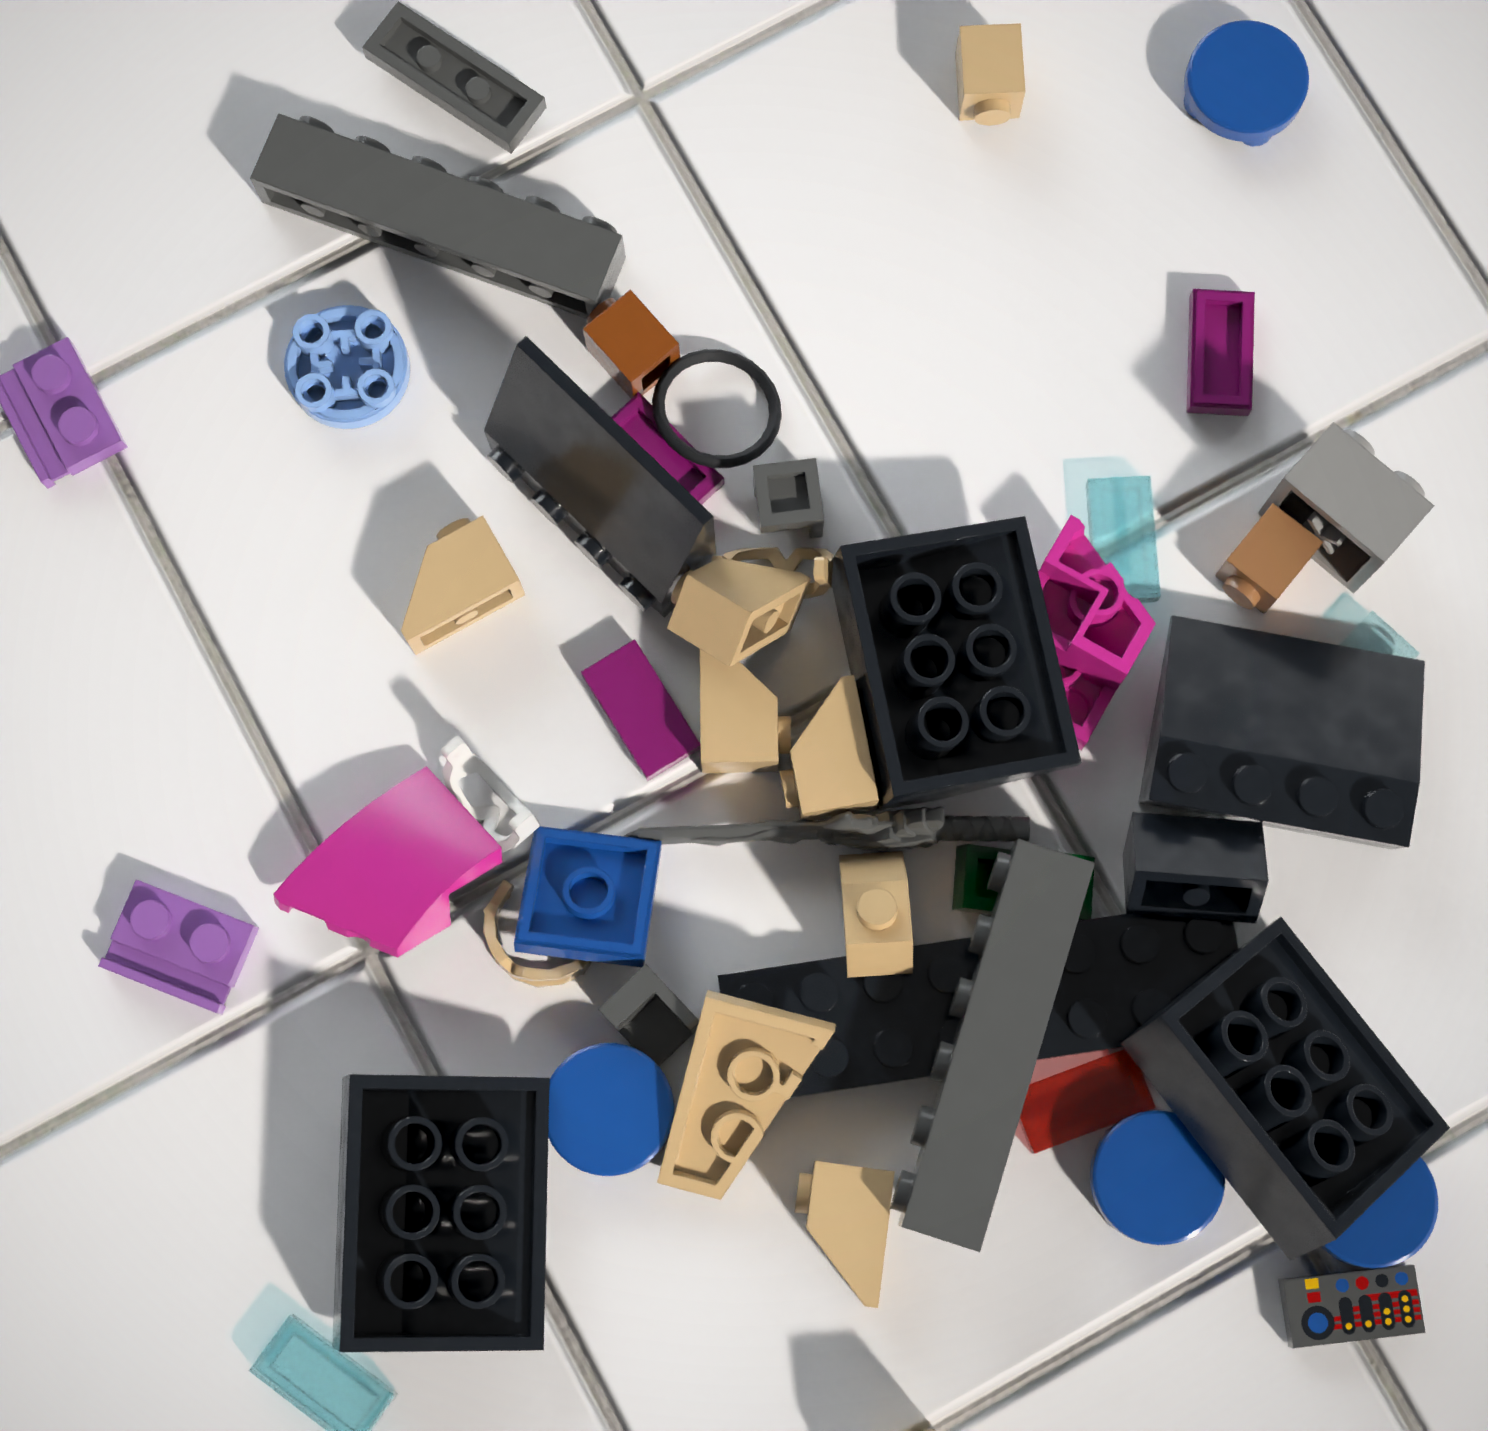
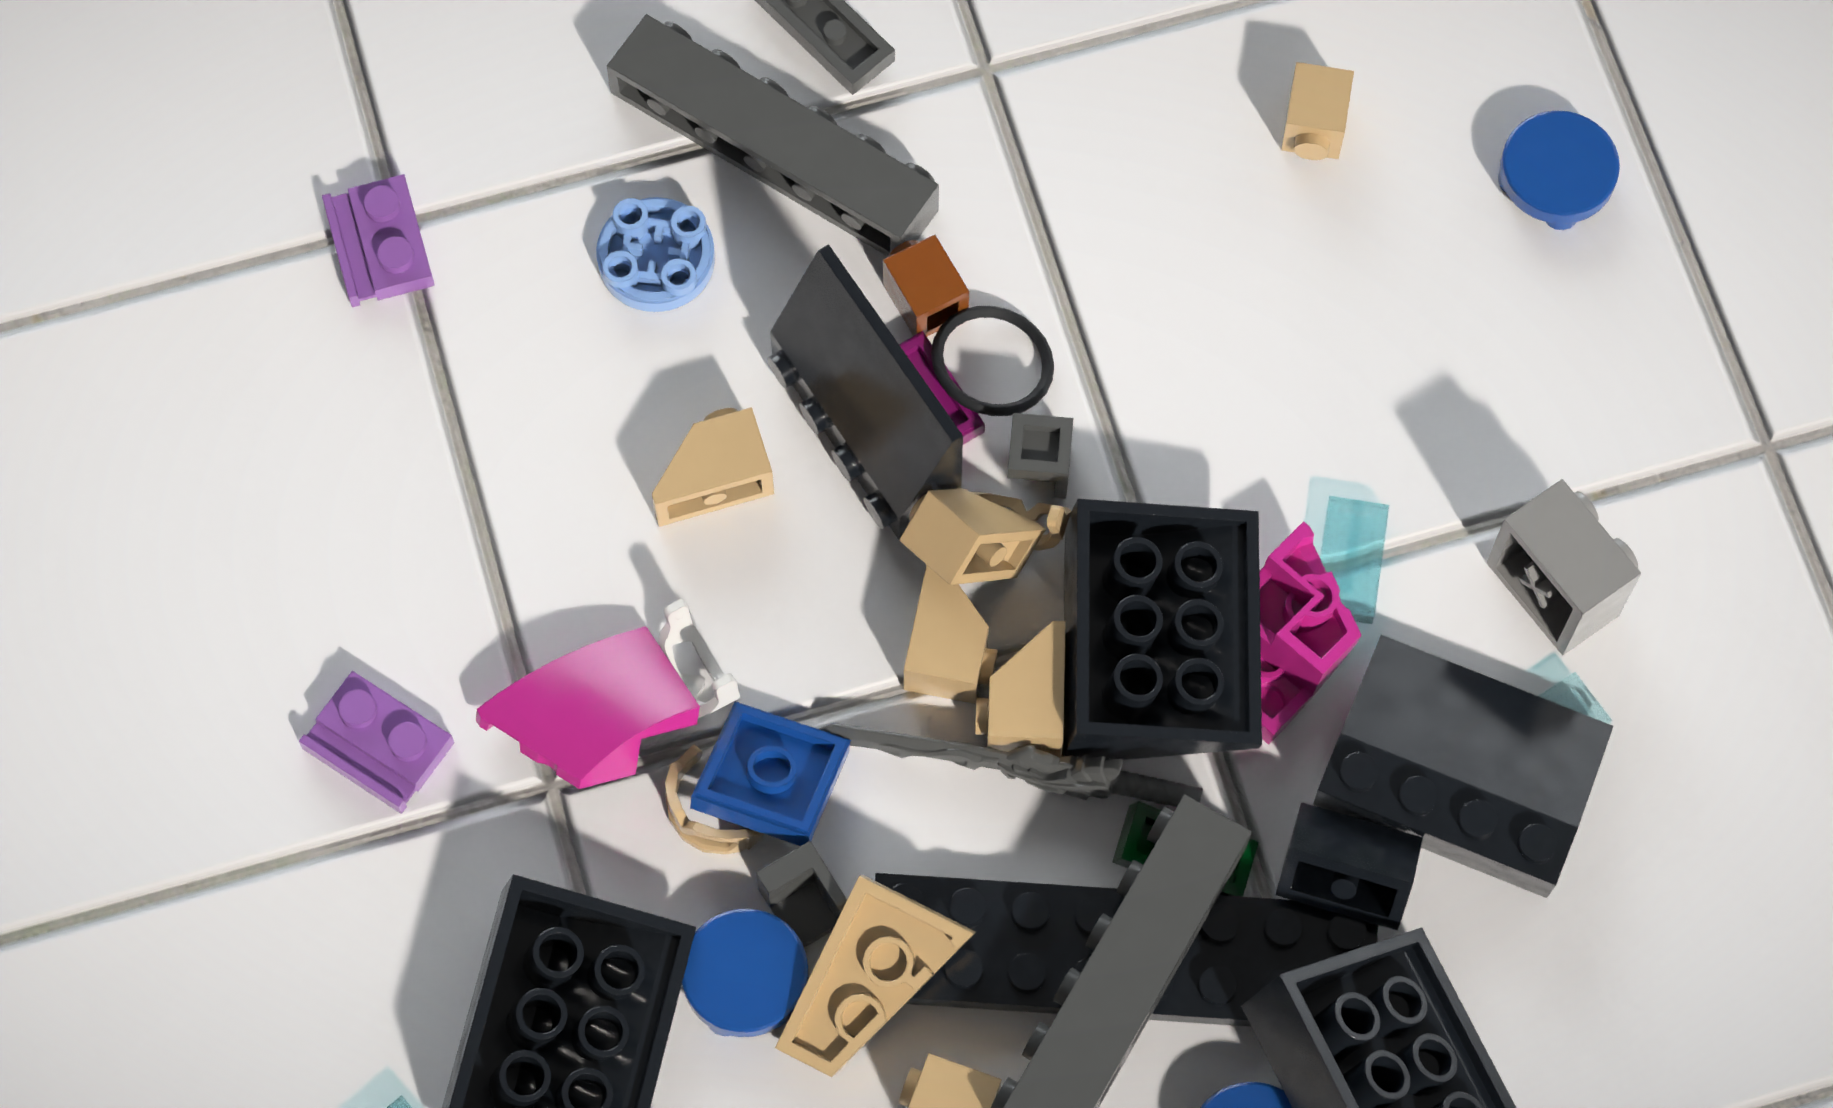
camera: 10 degrees right, 10 degrees down
(641, 710) = (858, 618): magenta tile -> none
(876, 914) = (1036, 847): tan slope -> none
(1083, 1100) = (1194, 1063): clear red tile -> none
(1220, 352) = (1482, 408): magenta tile -> none
(1267, 560) = (1483, 603): medium nougat brick -> none

